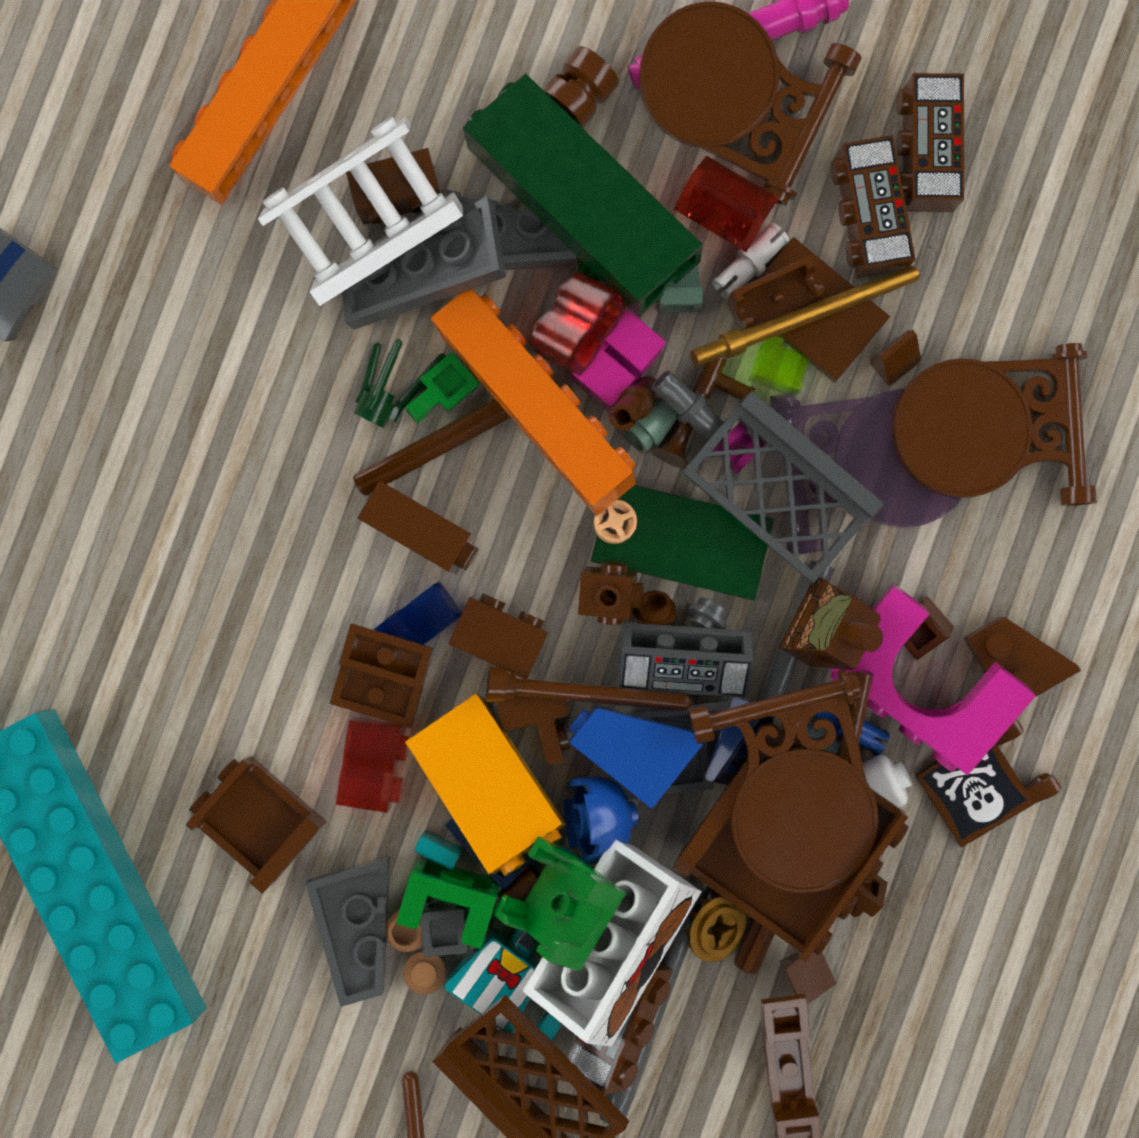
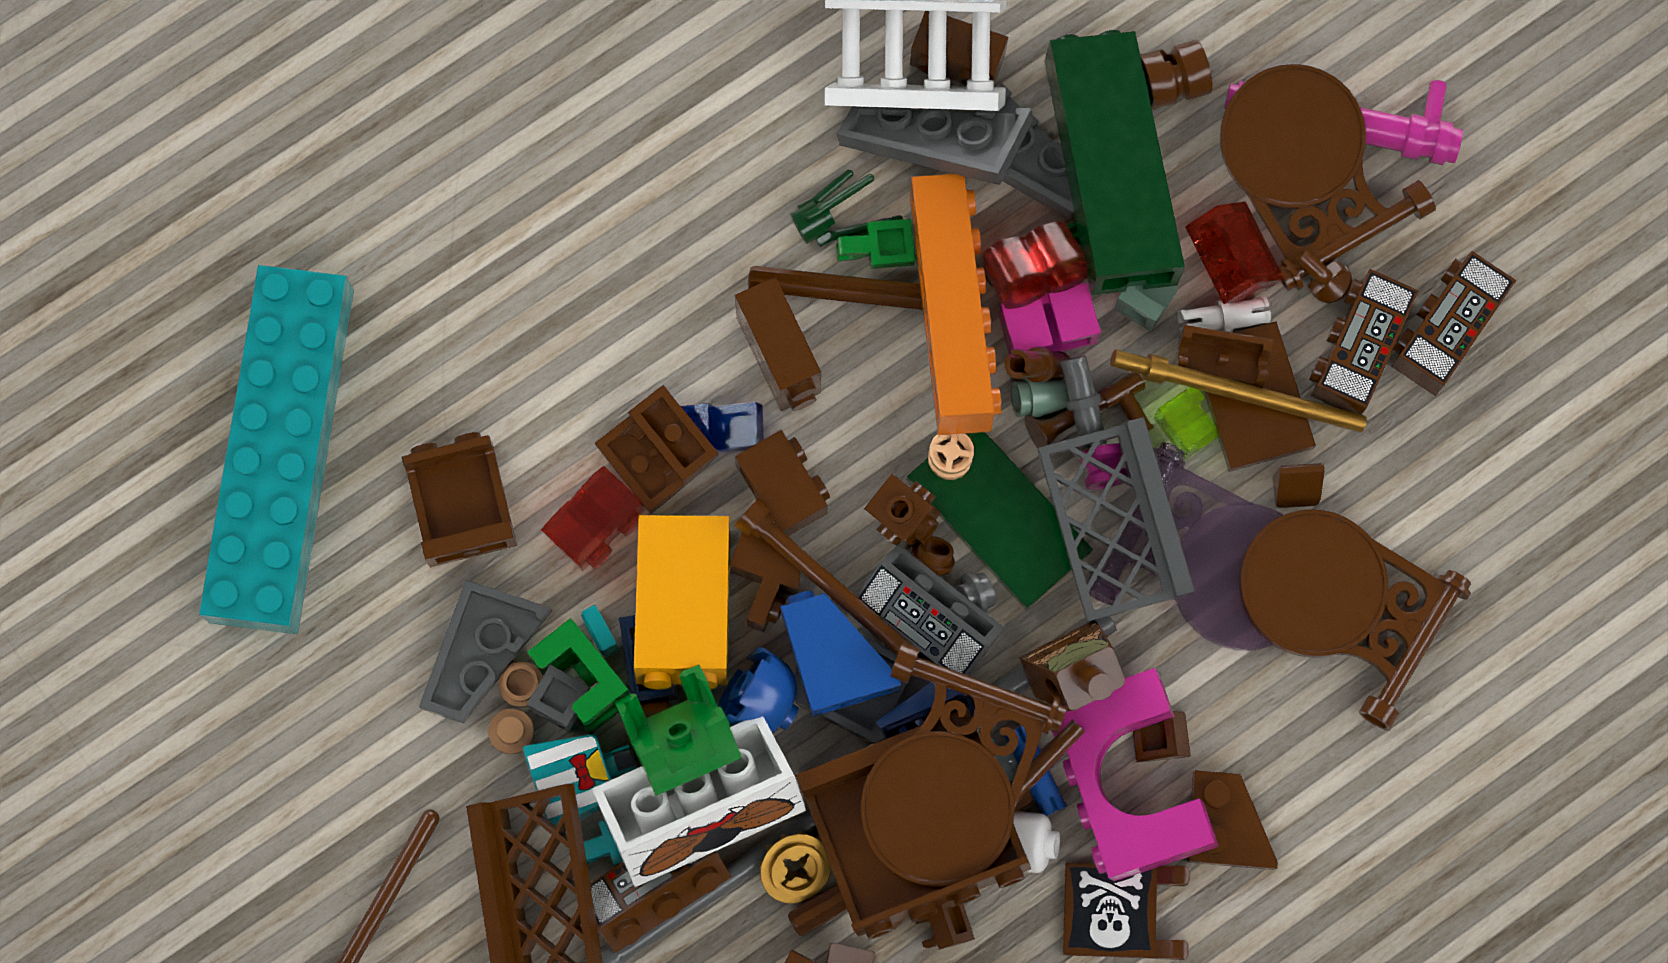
camera: 30 degrees right, 10 degrees down
(812, 177) = (1328, 281): none -> reddish brown plate

